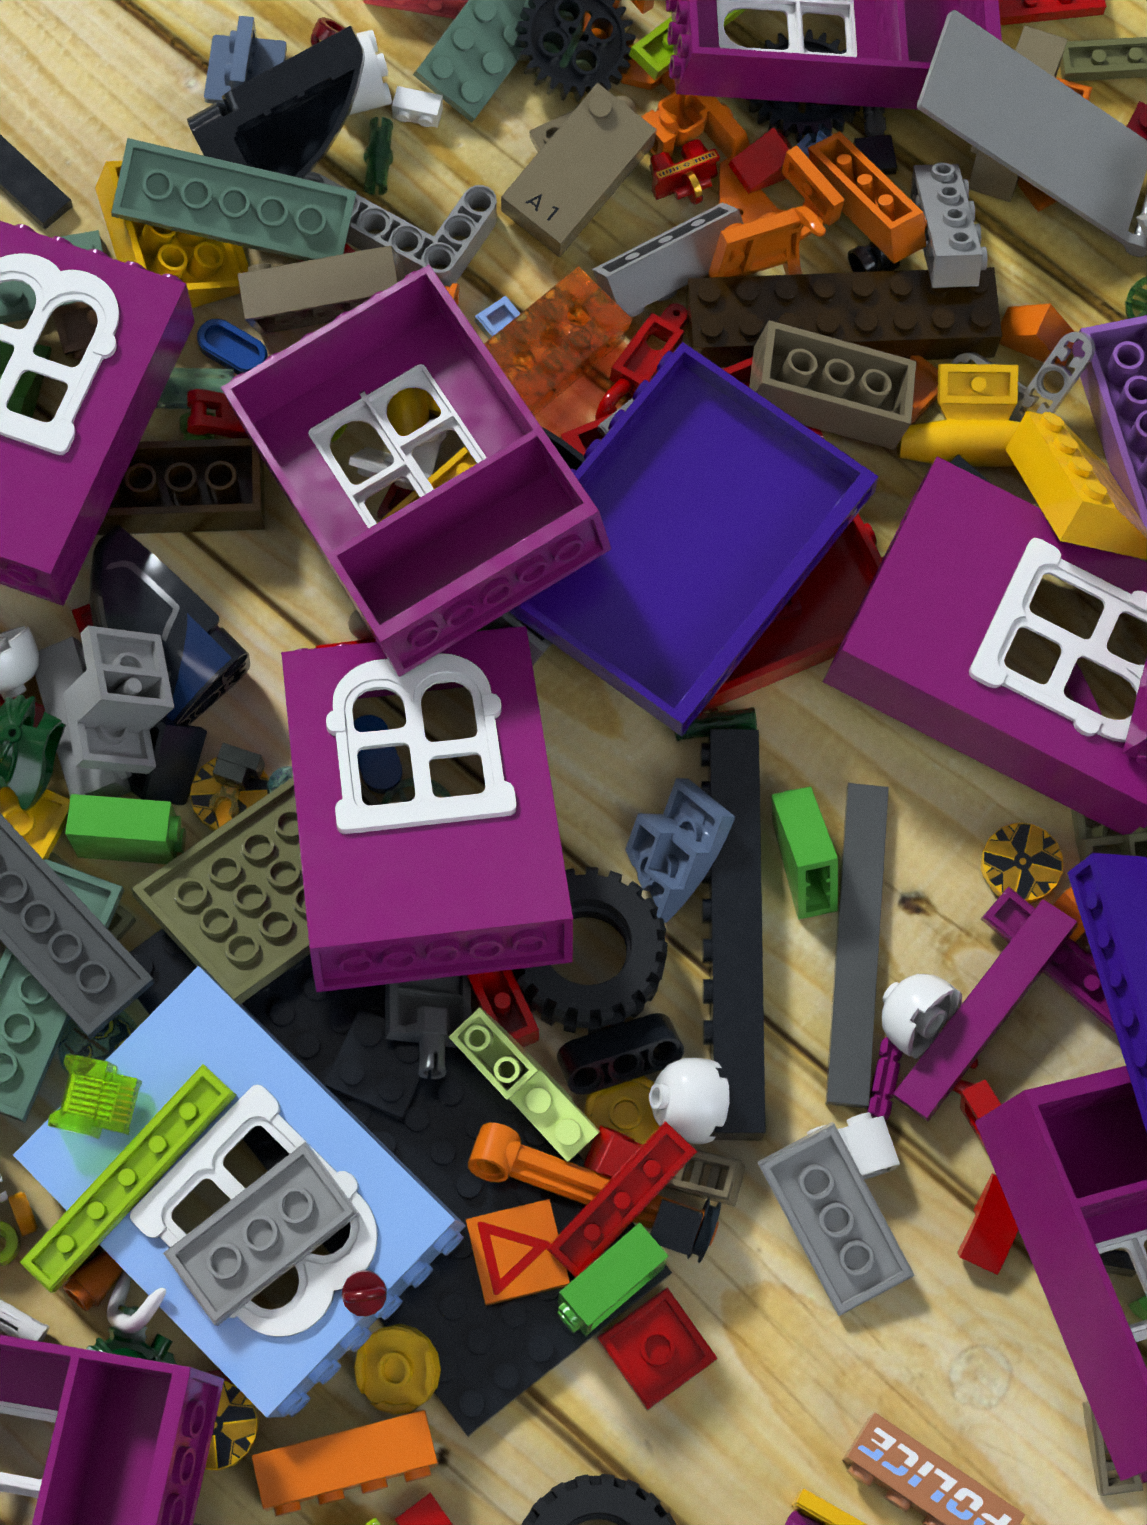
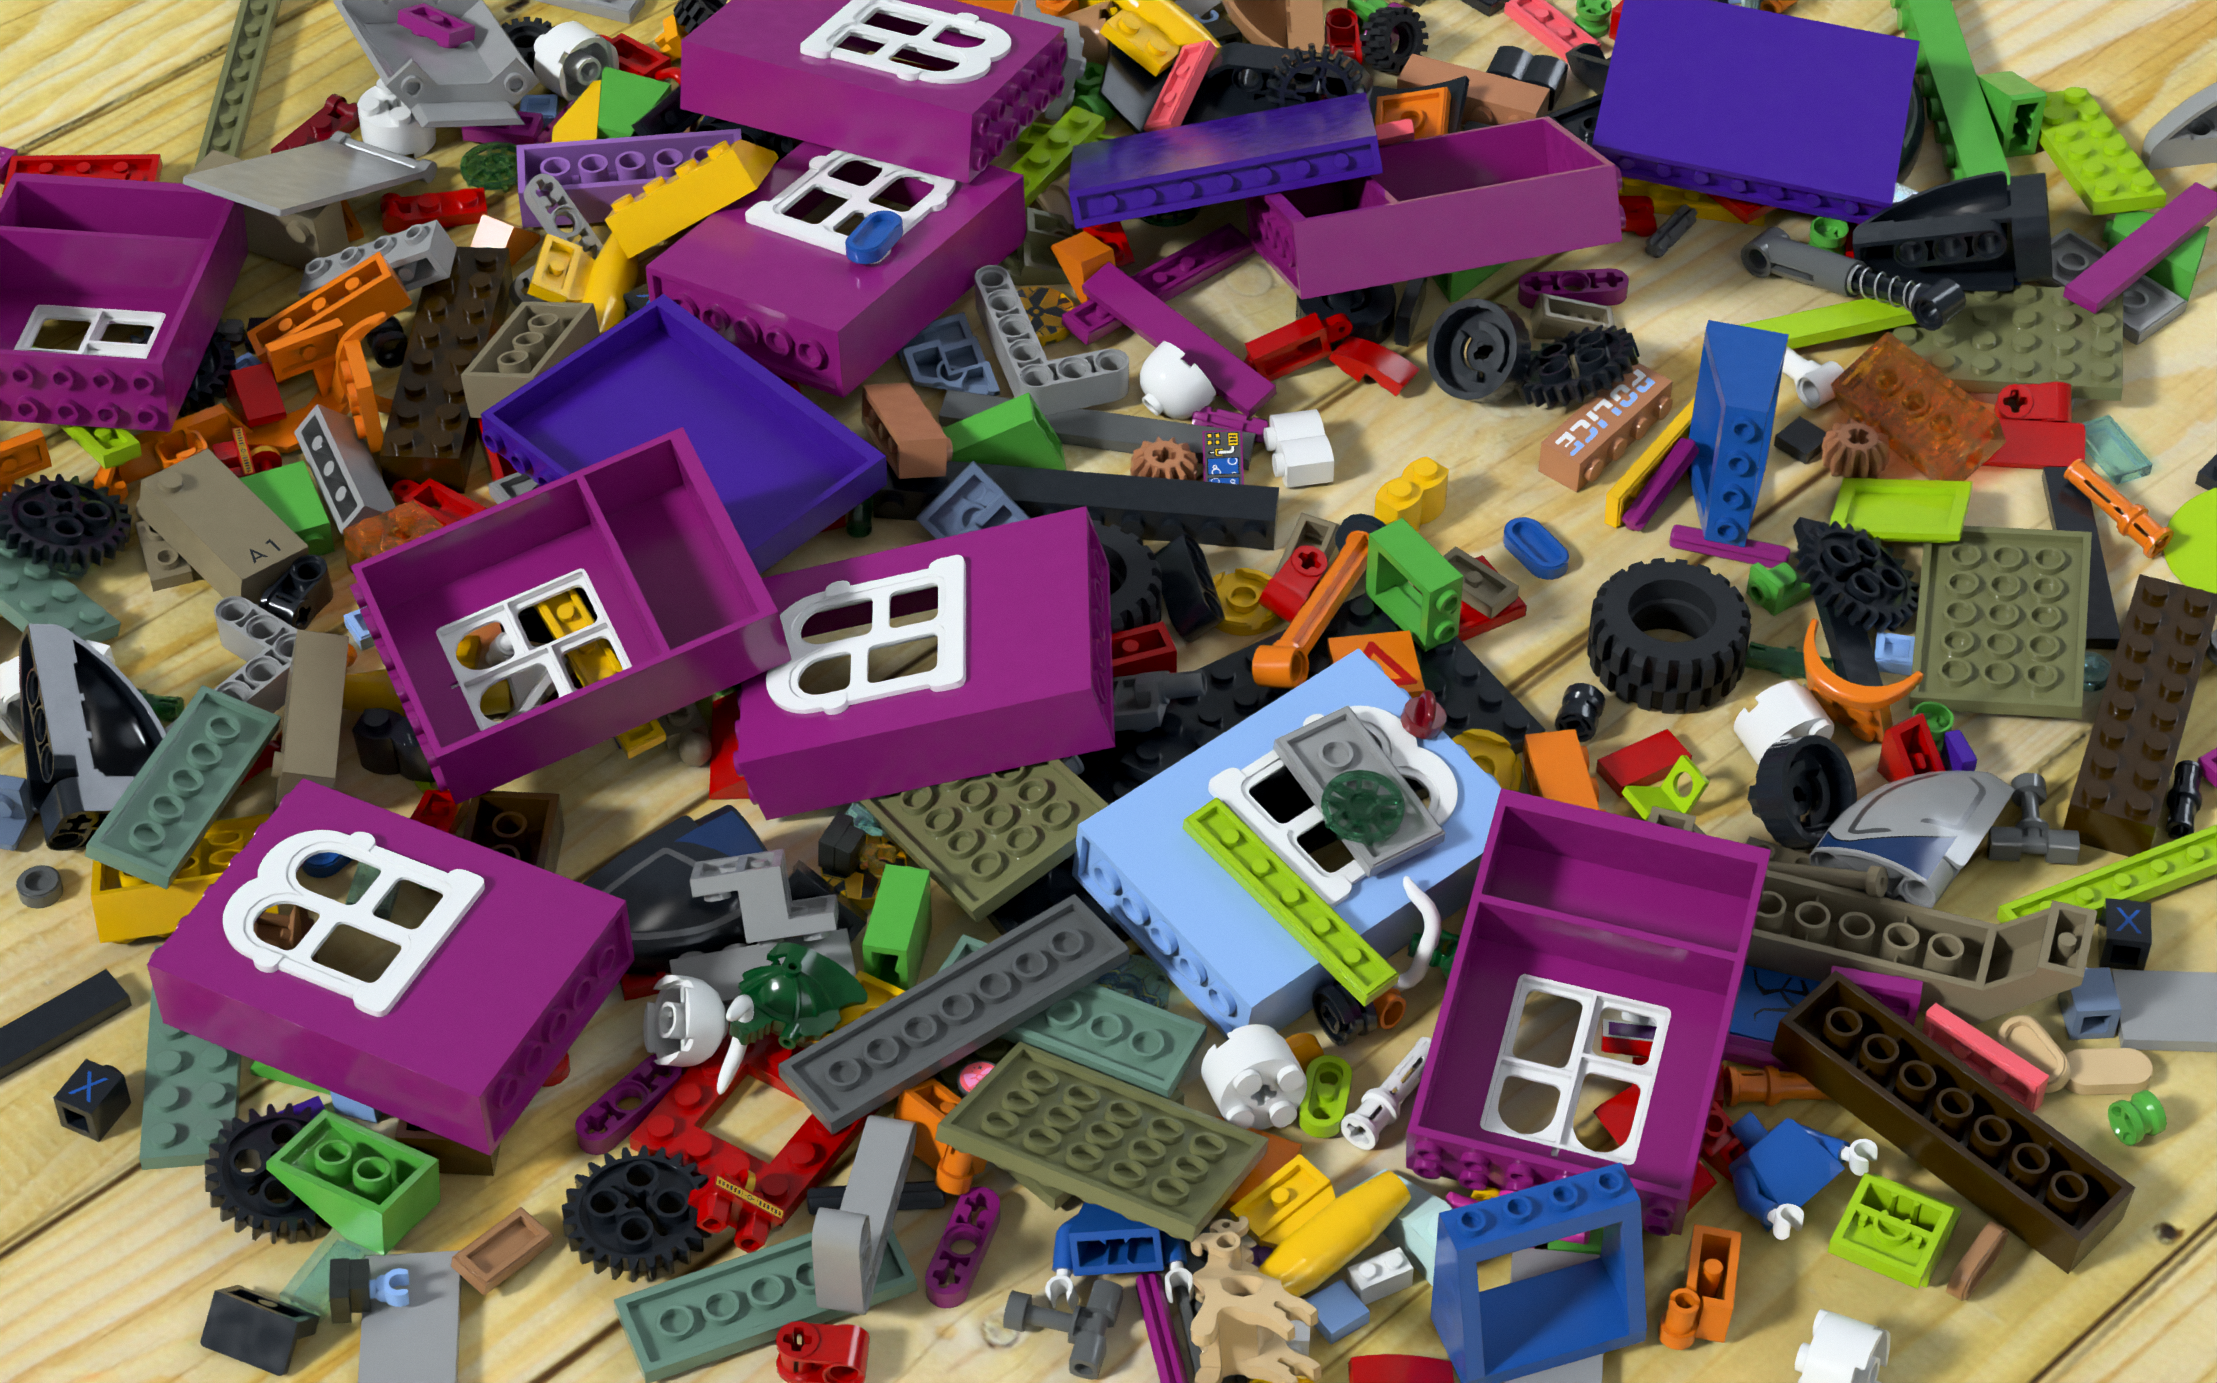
camera: 80 degrees left, 25 degrees down
(95, 1098) = (1206, 913): clear neon green piece -> none
(166, 129) = (39, 886): none -> dark grey tile
(224, 1237) = (1362, 807): none -> clear green wheel
(491, 1471) = (1580, 710): none -> black wheel
(515, 251) = (300, 592): none -> black piece
(524, 1083) = (1219, 634): yellowish green slope -> none
(621, 1199) = (1338, 574): red tile -> none
(627, 217) = (296, 502): none -> bright green slope
(656, 1347) = (1482, 586): none -> dark tan plate
(676, 1226) = (1356, 541): black tile -> none
(691, 1098) = (1242, 531): white cylinder -> none
(742, 1416) = (1535, 548): none -> blue tile
(788, 747) = (905, 430): none -> nougat brick
(789, 1281) = (1415, 496): none -> yellow brick
(807, 1075) = (1223, 456): none -> tile
(812, 1014) = (1164, 460): none -> nougat gear
(836, 1218) = (1355, 450): light grey tile -> none
(934, 785) = (948, 358): none -> sand blue slope
(940, 857) = (1053, 384): none -> light grey beam
(999, 666) = (874, 237): none -> blue tile
(1013, 1441) = (1599, 355): none -> black gear
(1016, 1351) = (1497, 348): none -> black piece
(1082, 266) = (449, 208): none -> red plate

